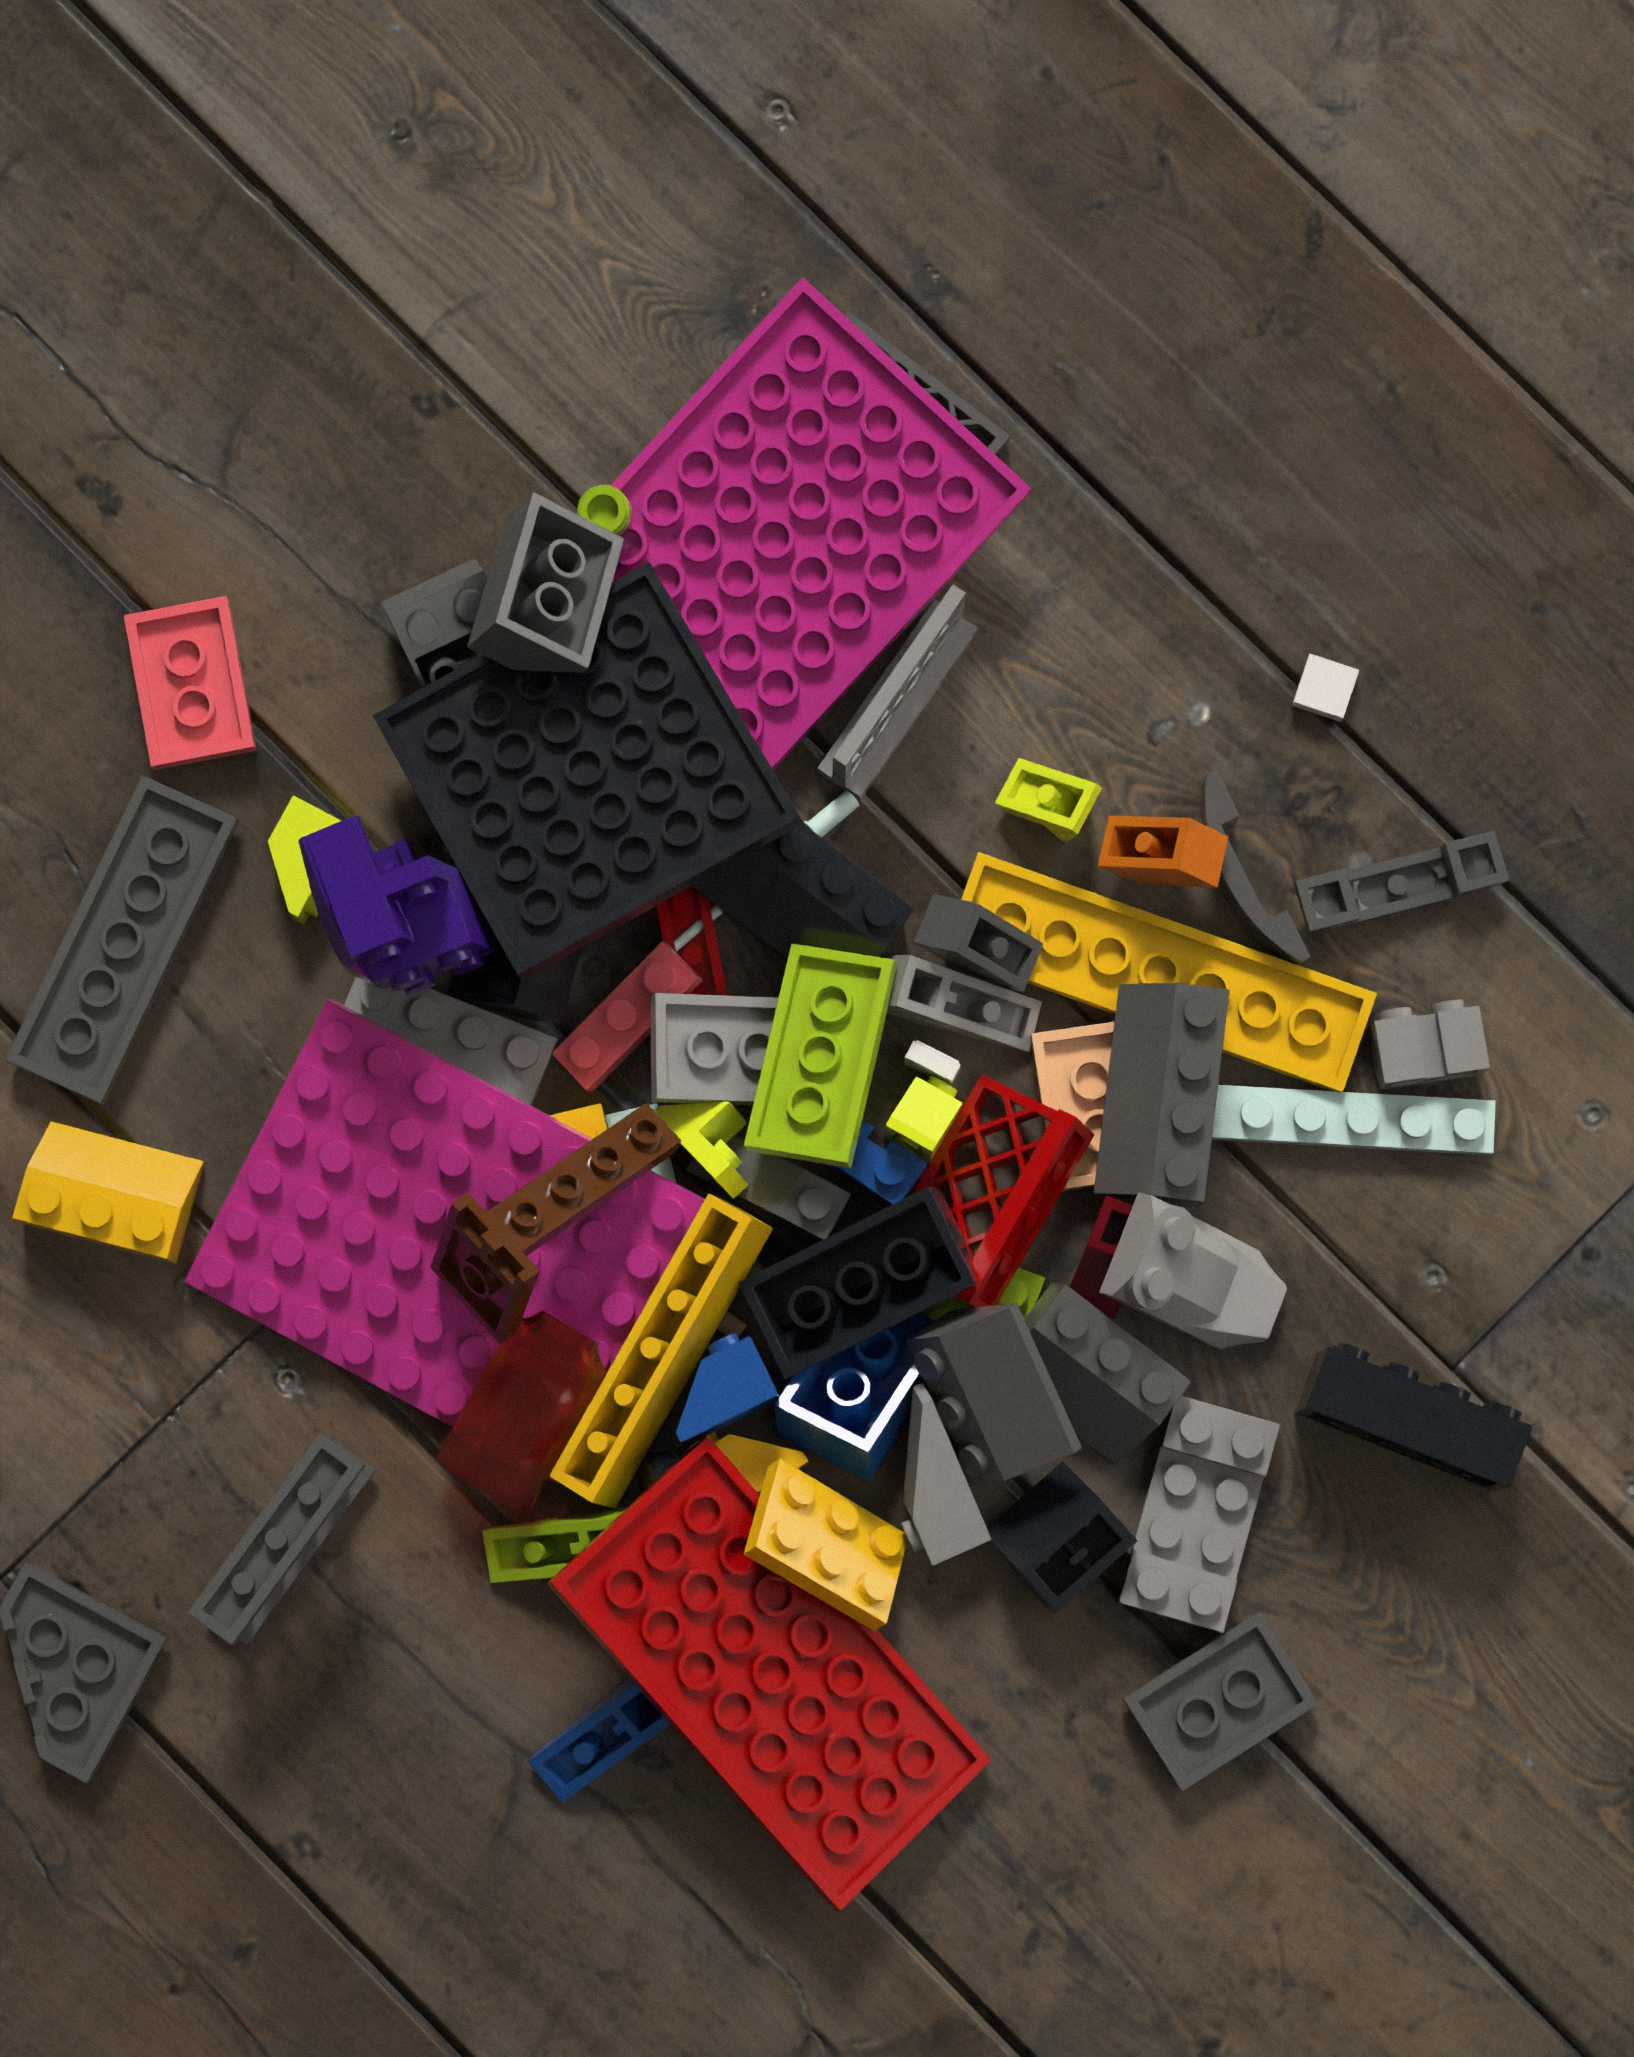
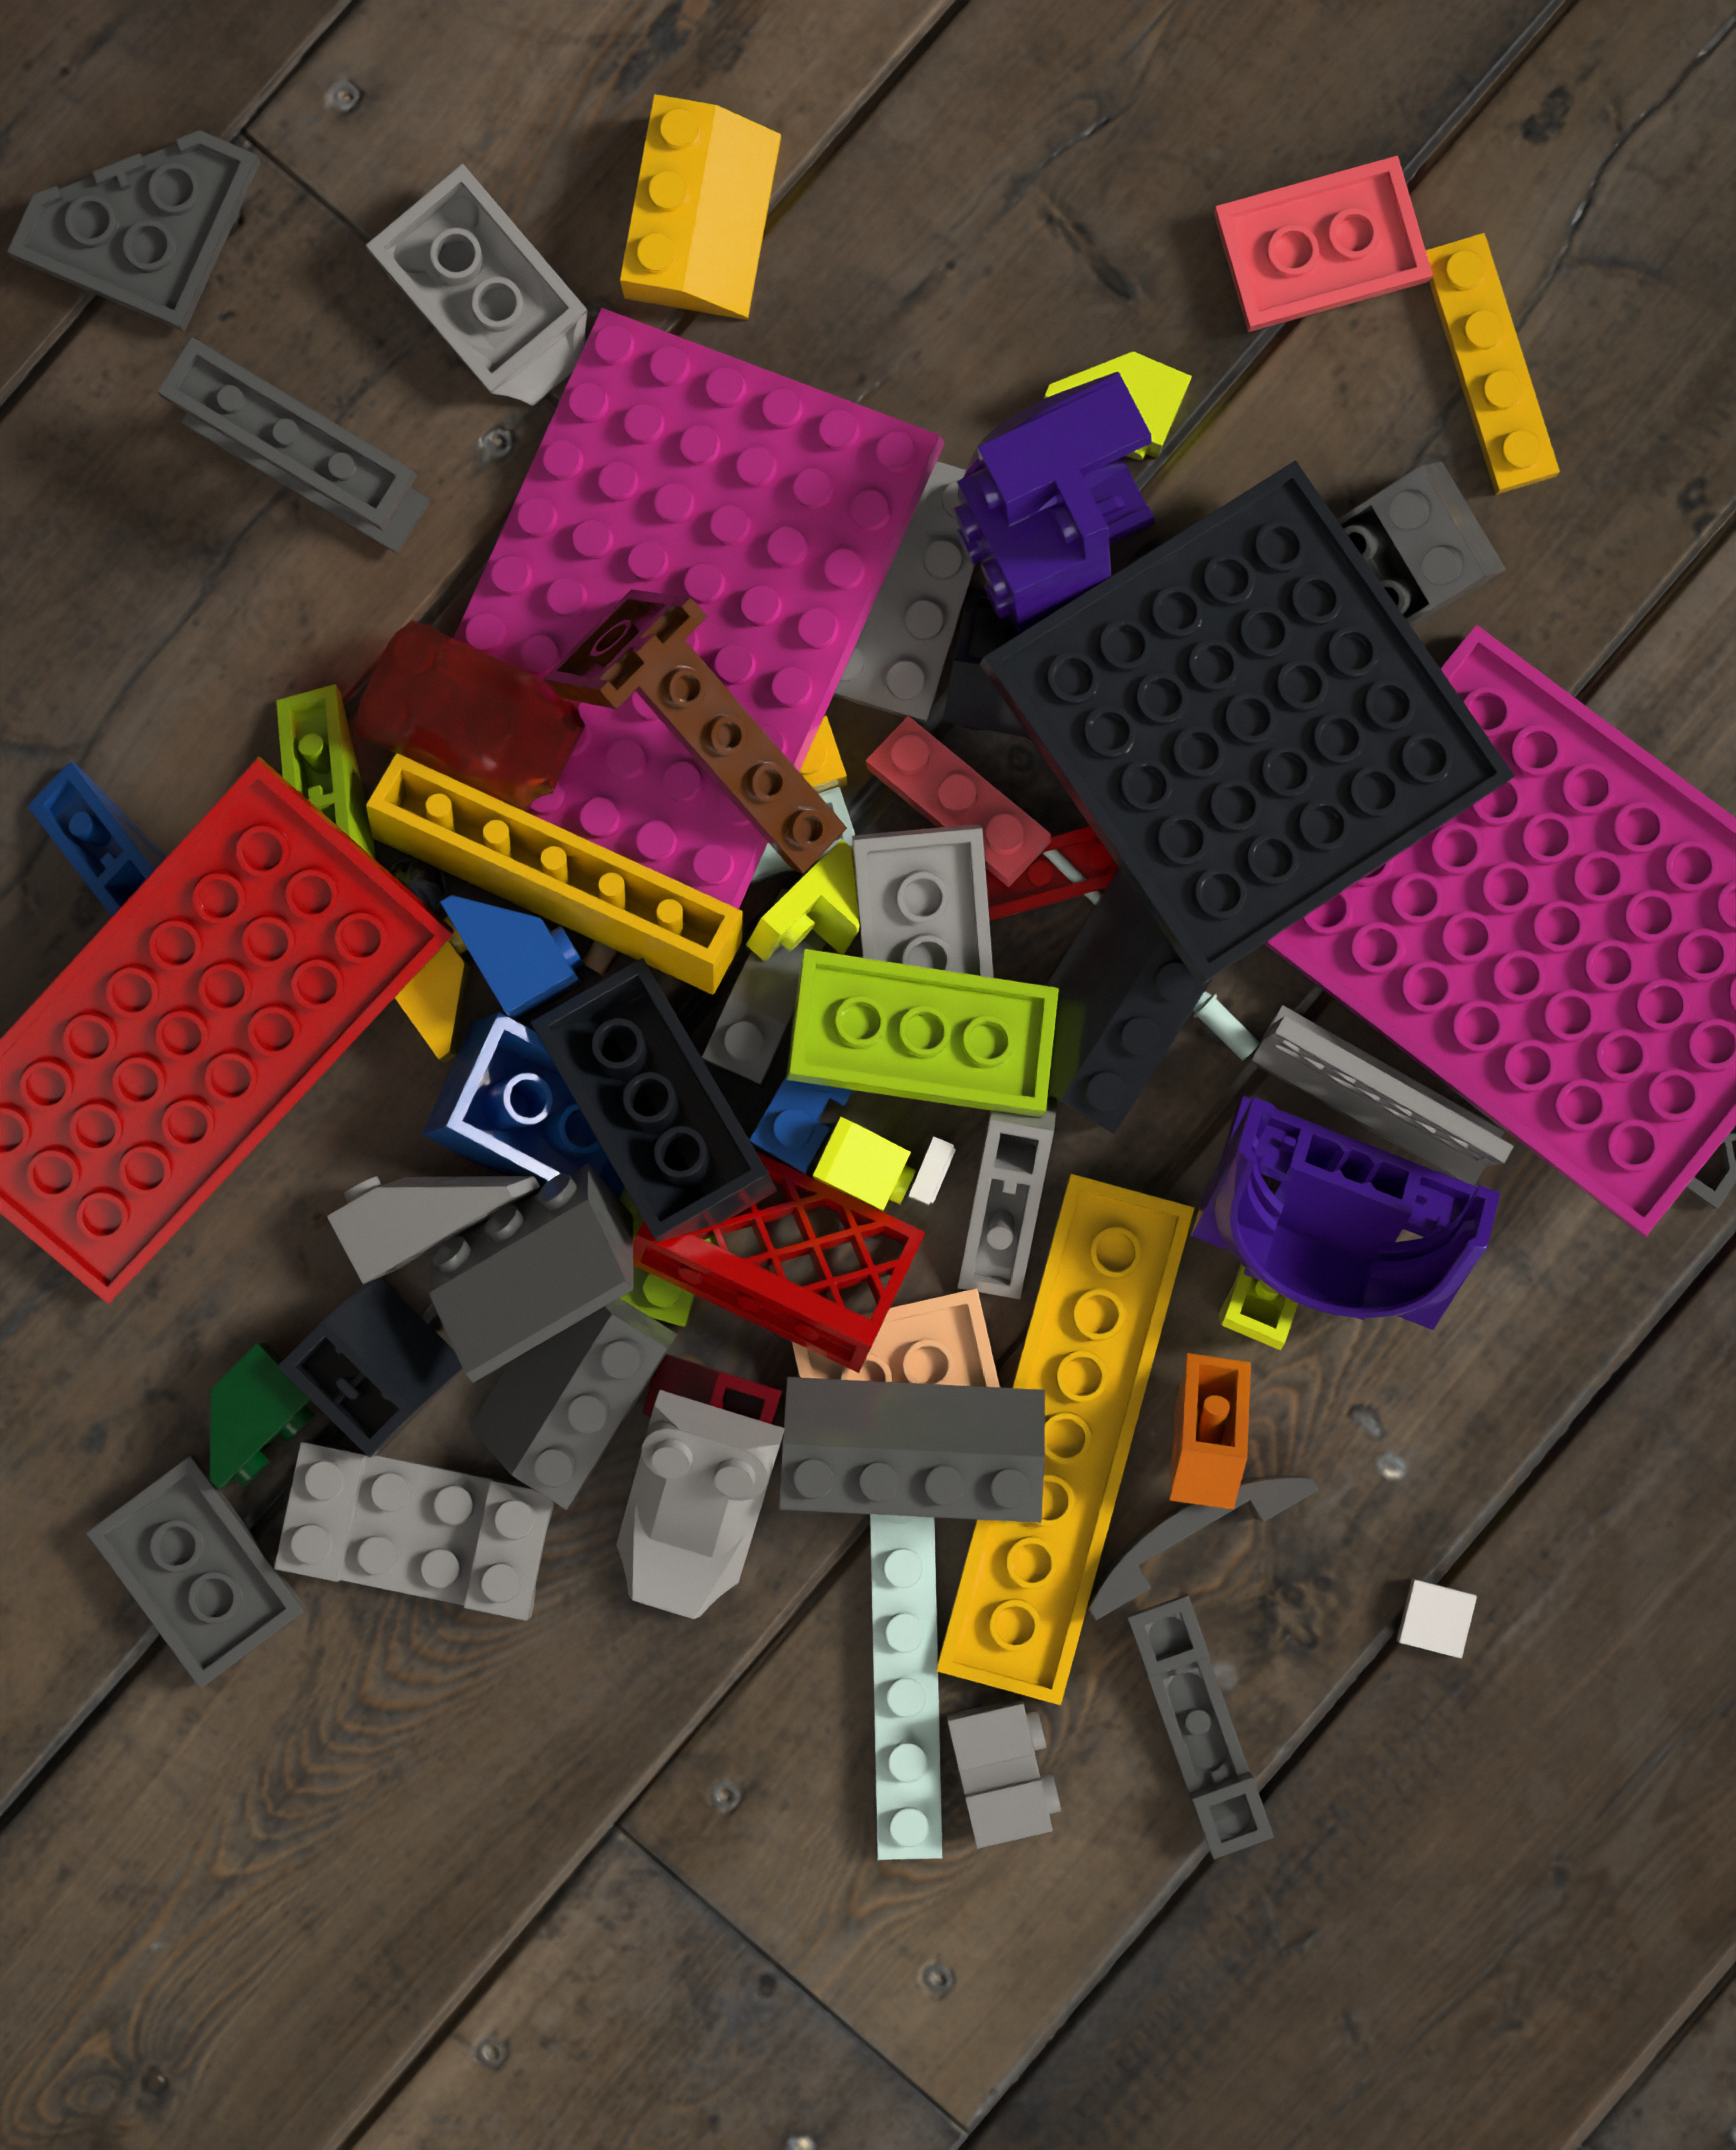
camera: 85 degrees right, 5 degrees up
(122, 940) = (1003, 195): dark grey plate -> none
(159, 1376) = (484, 289): none -> light grey slope
(303, 557) = (1490, 364): none -> yellow plate
(545, 589) = (1467, 653): dark grey slope -> none
(606, 508) = (1574, 718): lime tile -> none
(826, 1544) = (339, 1087): yellow plate -> none
(978, 941) = (1080, 1214): dark grey slope -> none
(996, 746) = (1334, 1219): none -> dark purple piece
(1089, 1643) = (249, 1413): none -> dark green slope
(1413, 1418) = (542, 1780): black brick -> none

